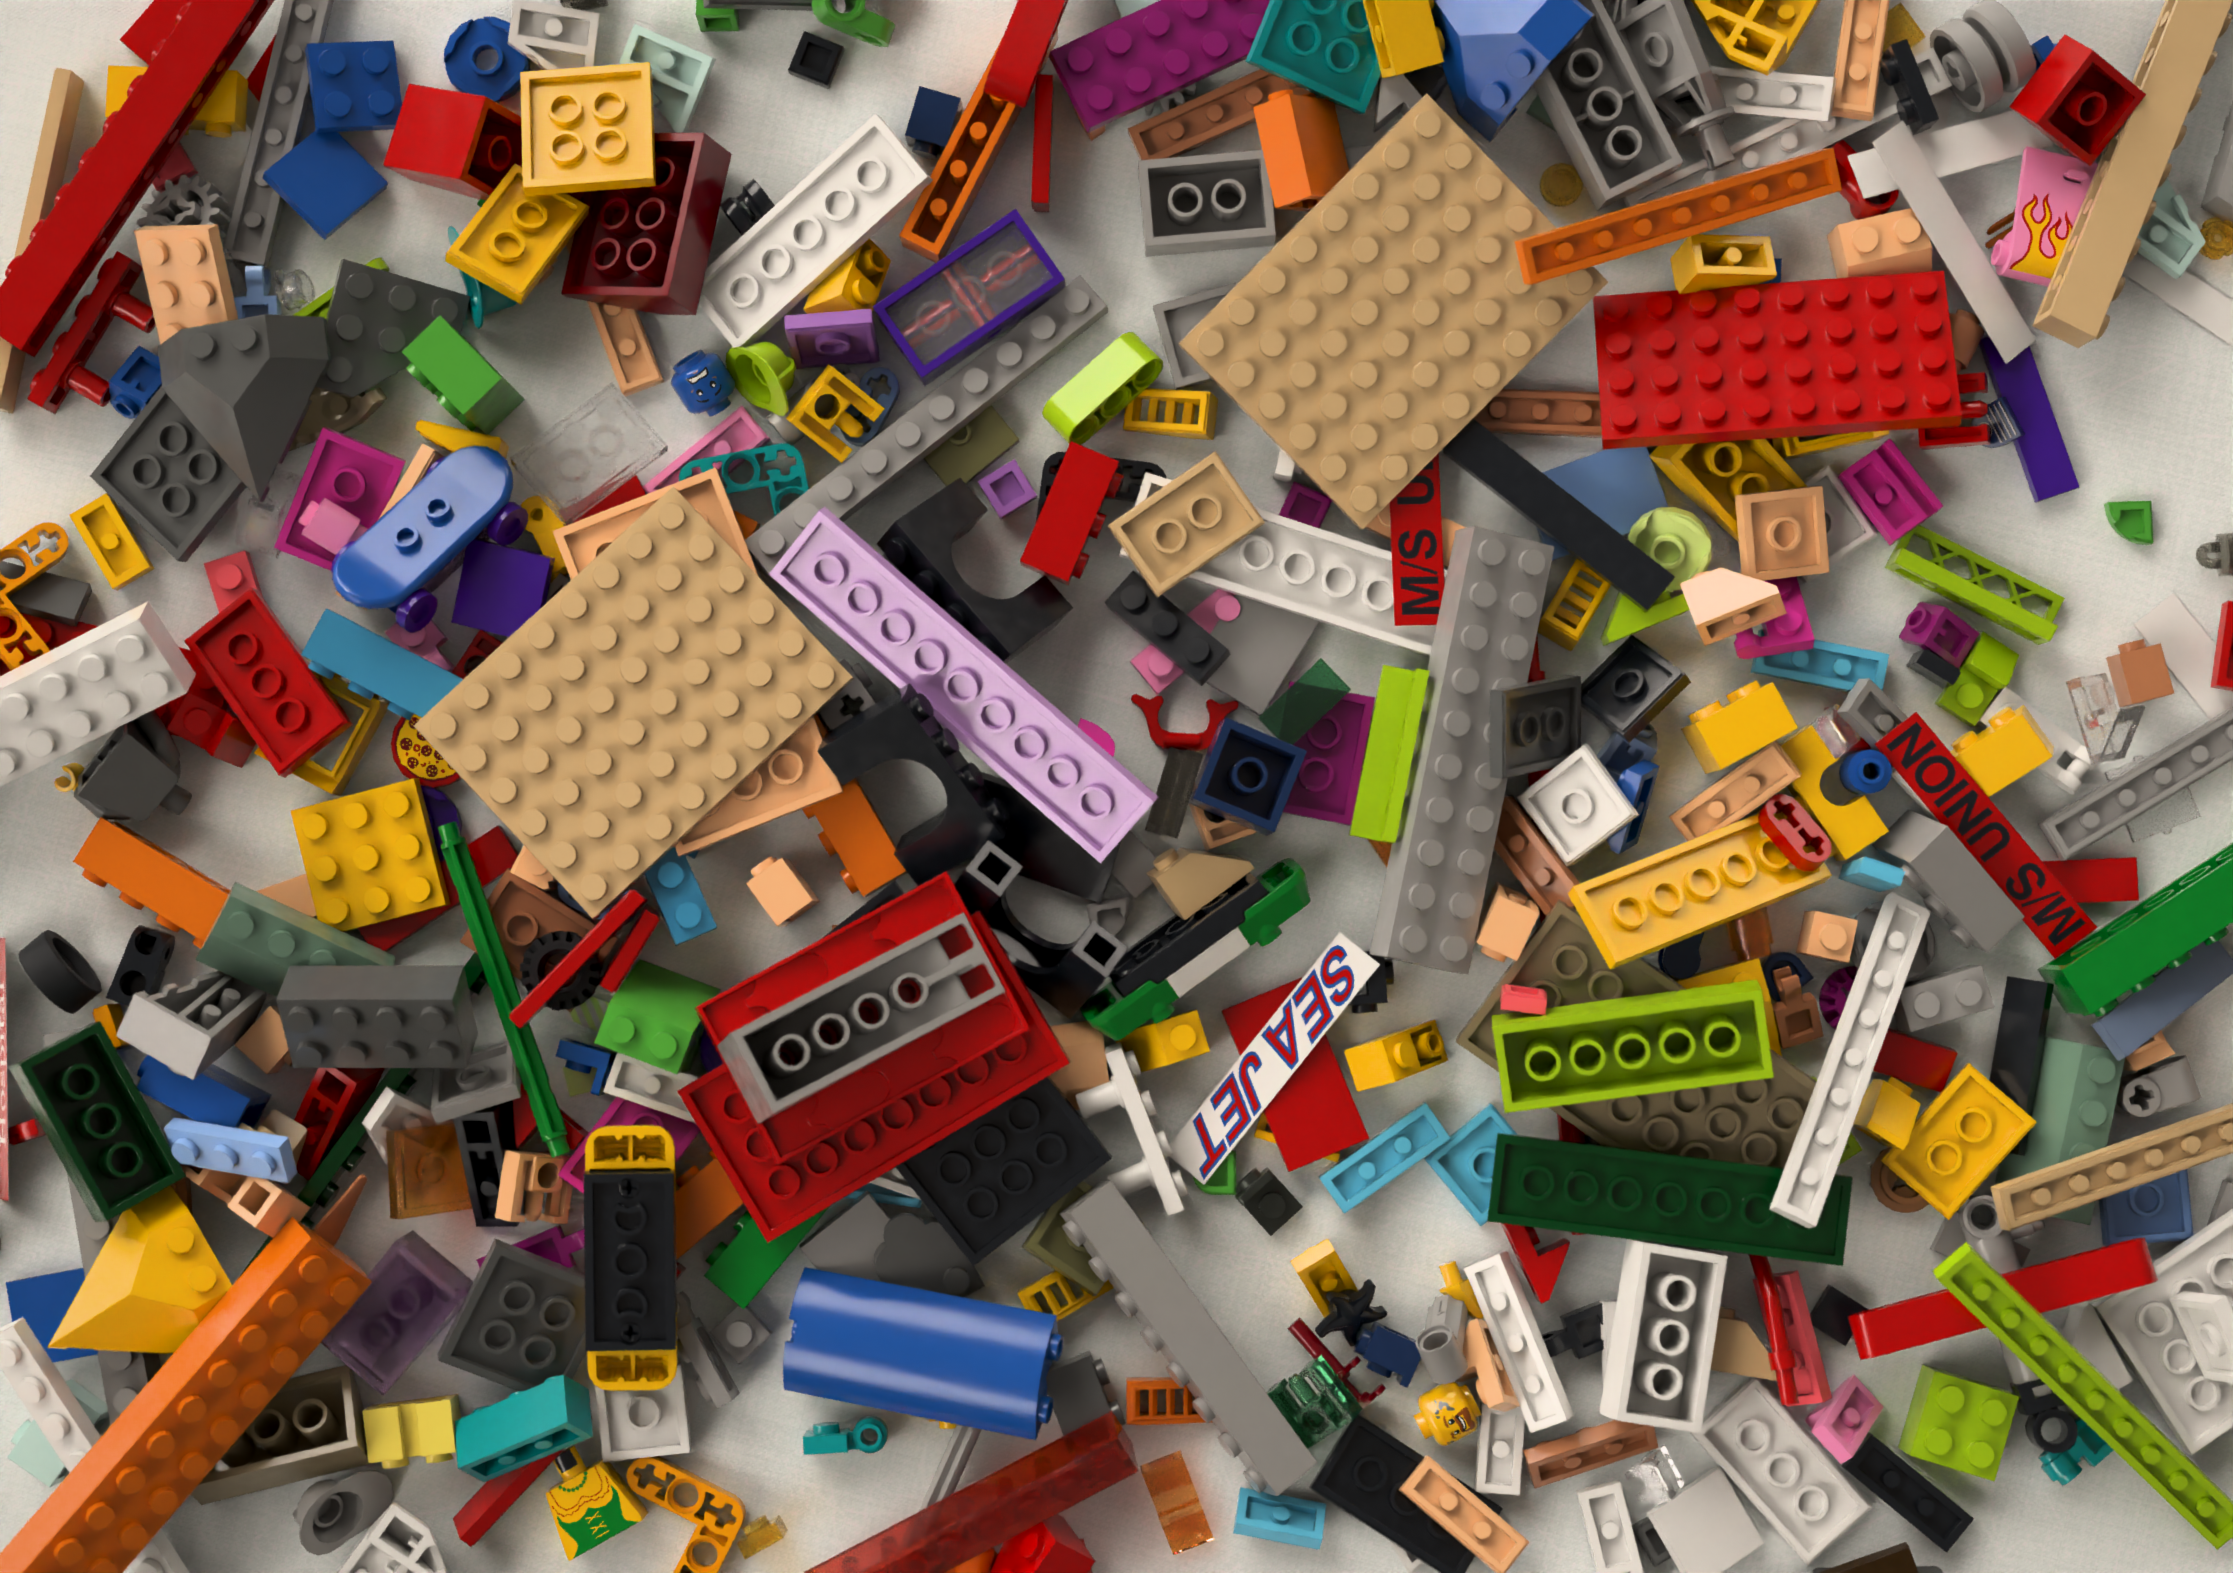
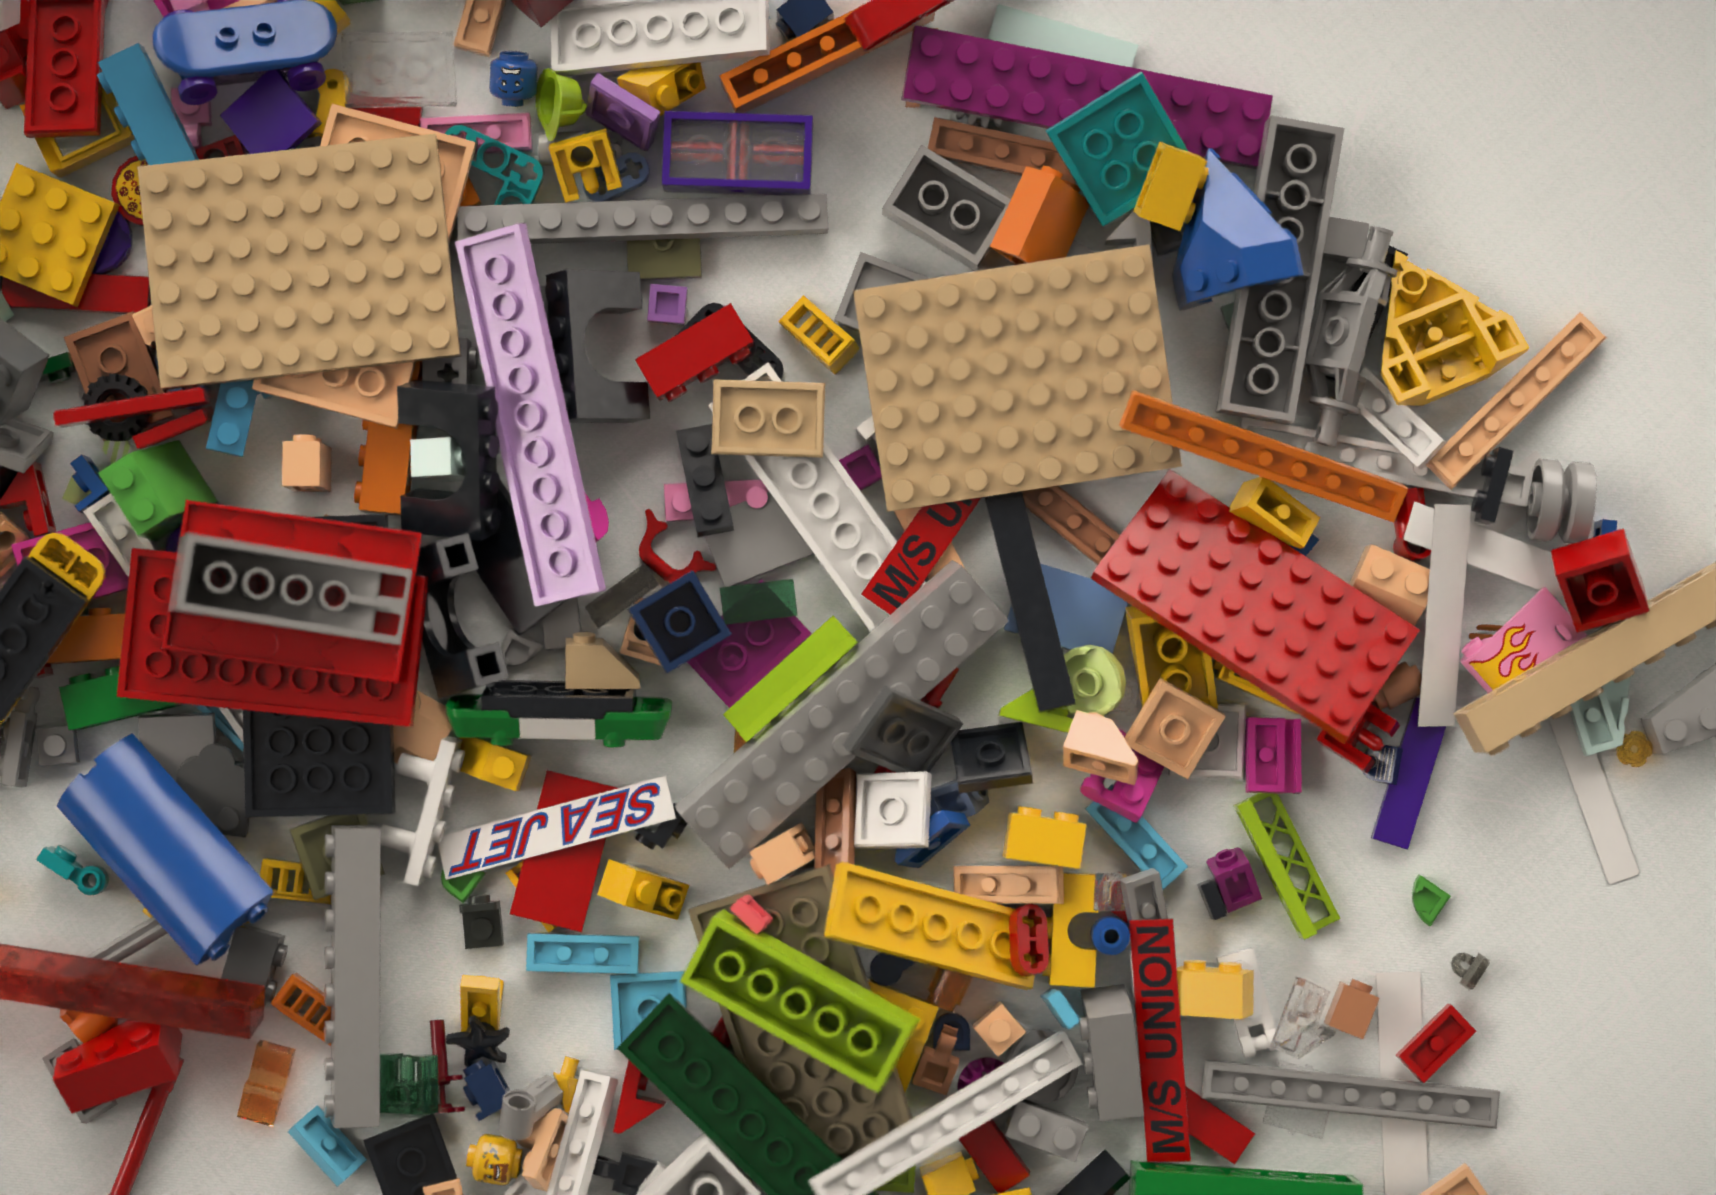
camera: 40 degrees right, 0 degrees up
(503, 988) = (68, 391): green piece -> none
(906, 791) = (437, 459): none -> light aqua brick
(1042, 143) = (868, 84): red tile -> none
(1102, 388) = (783, 283): lime beam -> none
(1557, 630) = (973, 683): yellow slope -> none
(1560, 185) = (1205, 376): clear yellow plate -> none
(1901, 27) = (1522, 442): clear yellow tile -> none
(1983, 673) = (1239, 930): lime slope -> none

